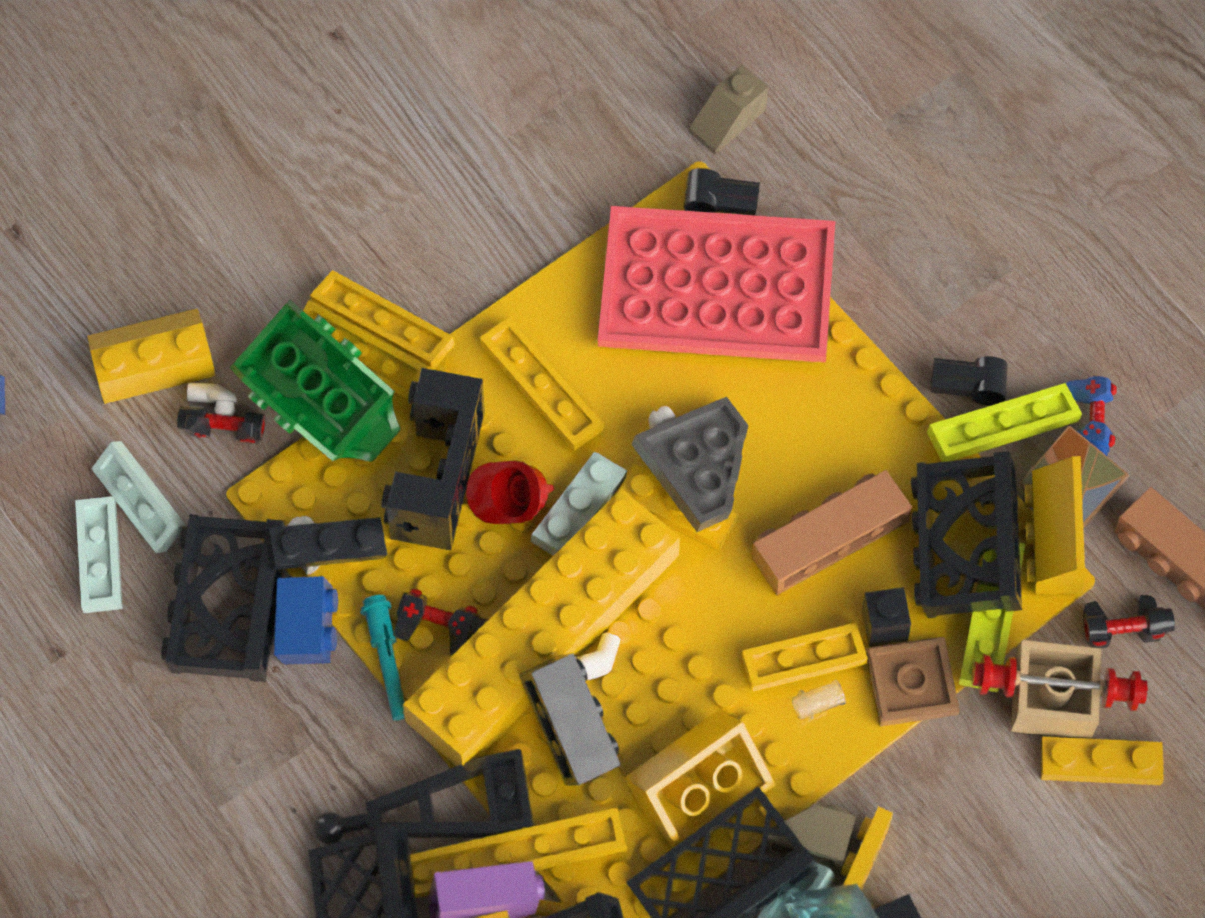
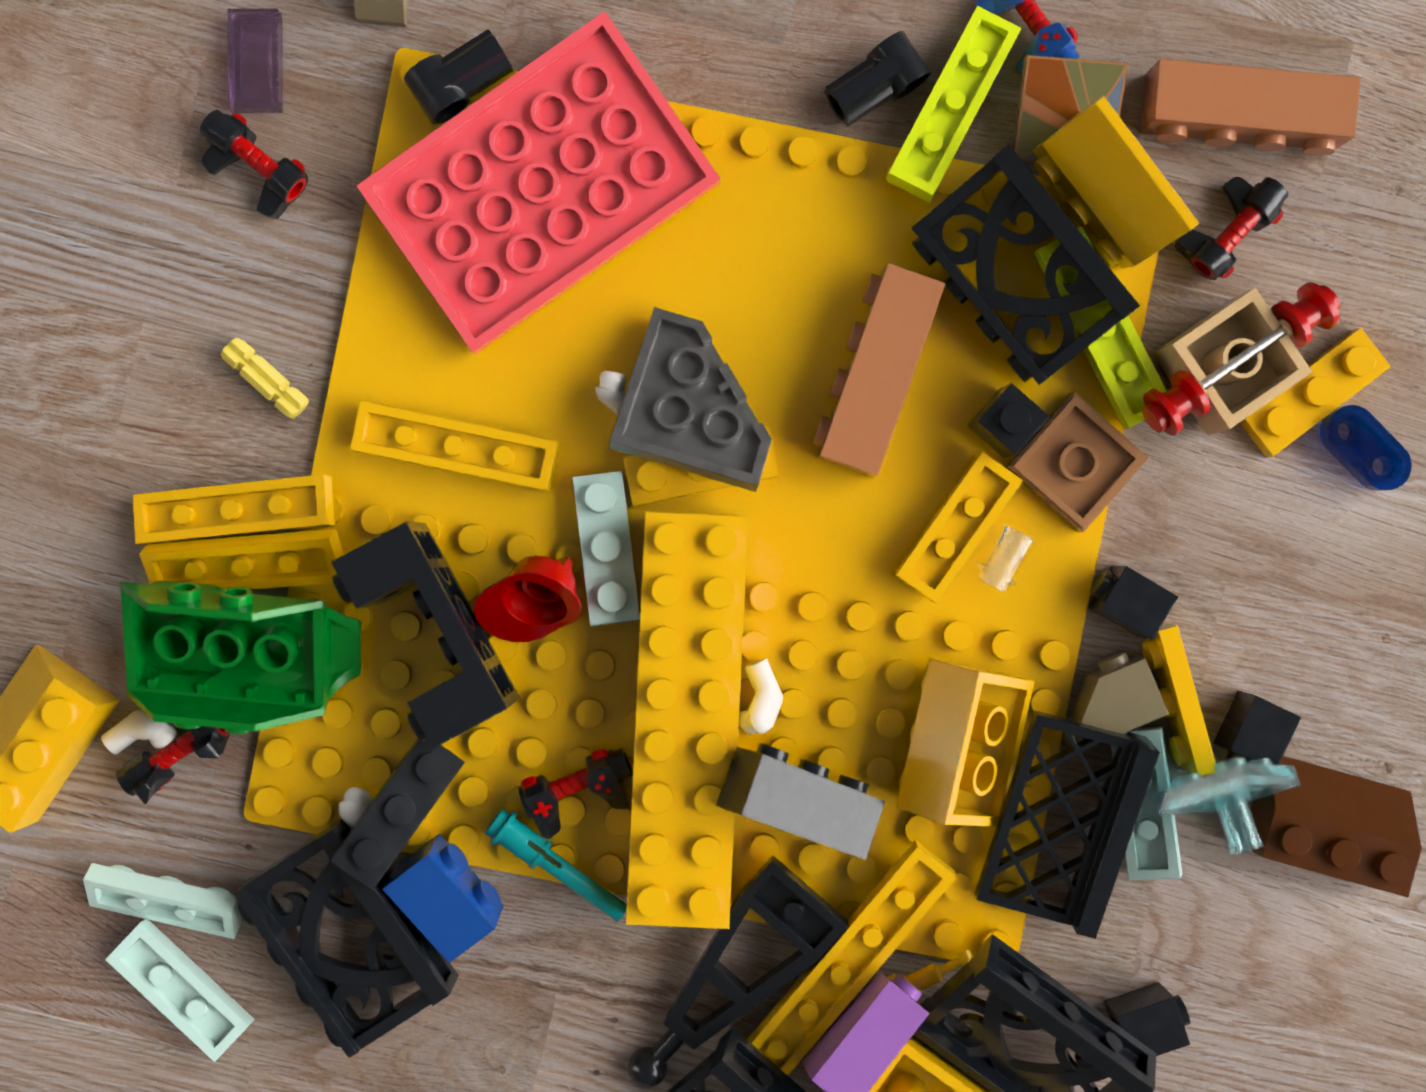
camera: 40 degrees left, 25 degrees up
(463, 269) = (264, 378): none -> light yellow axle
(562, 137) = (233, 141): none -> black piece
(612, 108) = (255, 61): none -> clear purple tile
(877, 784) = (1131, 601): none -> black brick
(1107, 817) = (1365, 443): none -> clear blue plate

